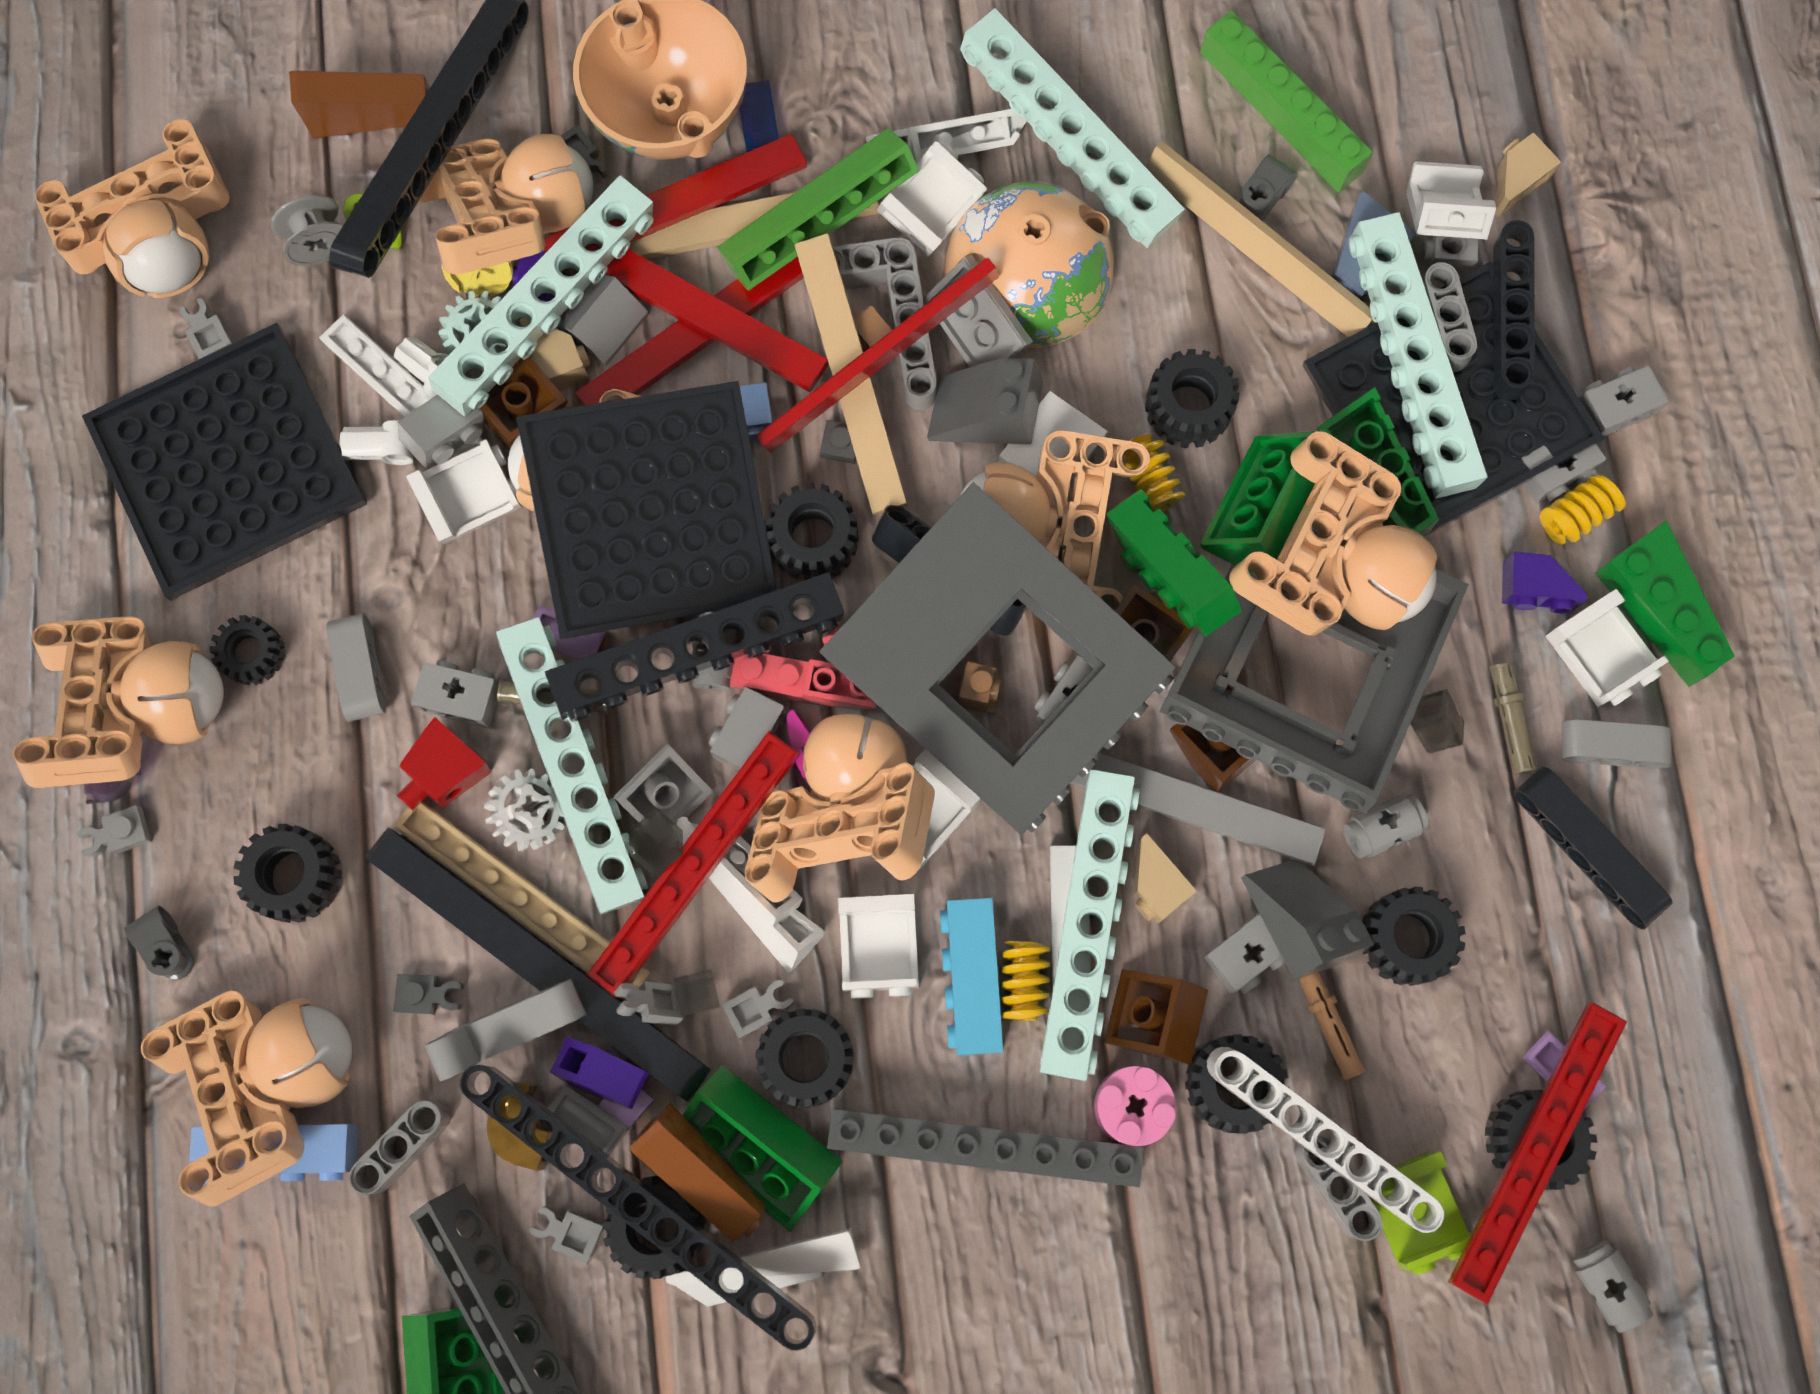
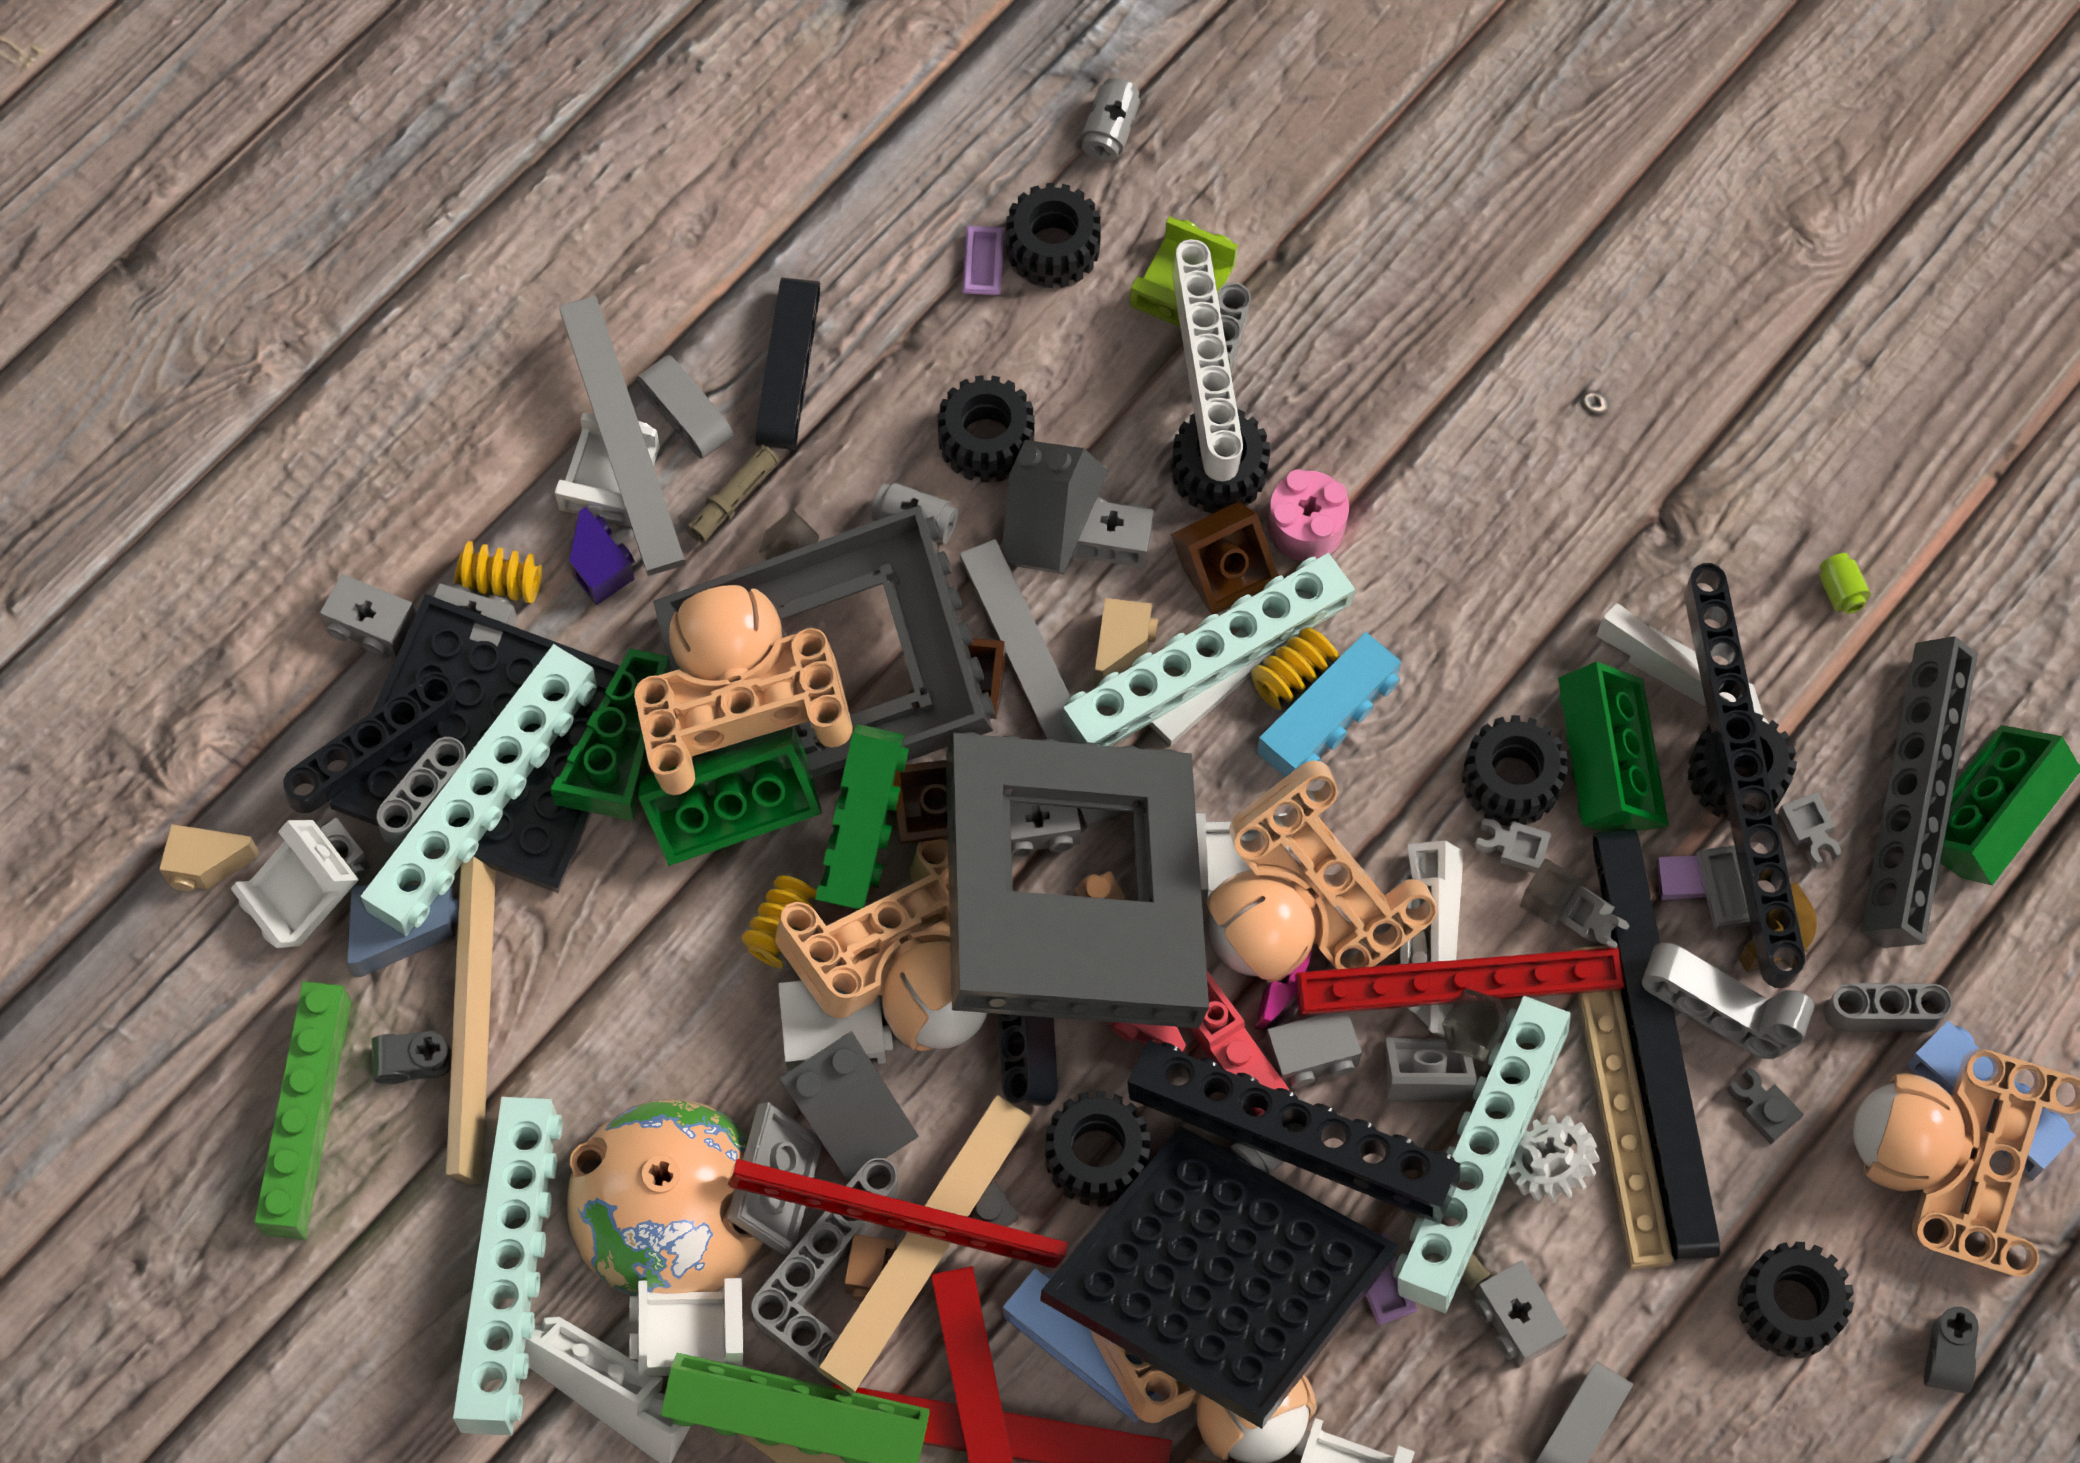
camera: 135 degrees left, 10 degrees down
(439, 767) = (1591, 1265): red torso -> none
(598, 1073) = (1683, 902): dark purple slope -> none
(698, 1173) = (1676, 765): dark orange slope -> none
(878, 945) = (1379, 798): white panel -> none
(985, 1148) = (1448, 595): dark grey brick -> none
(1196, 372) = (672, 916): black tyre -> none
(1331, 1025) = (1113, 424): medium nougat pin -> none
(1537, 1153) = (1069, 221): red tile -> none
(1628, 669) = (622, 436): none -> light grey tile
(1668, 604) = (525, 457): green wedge -> none

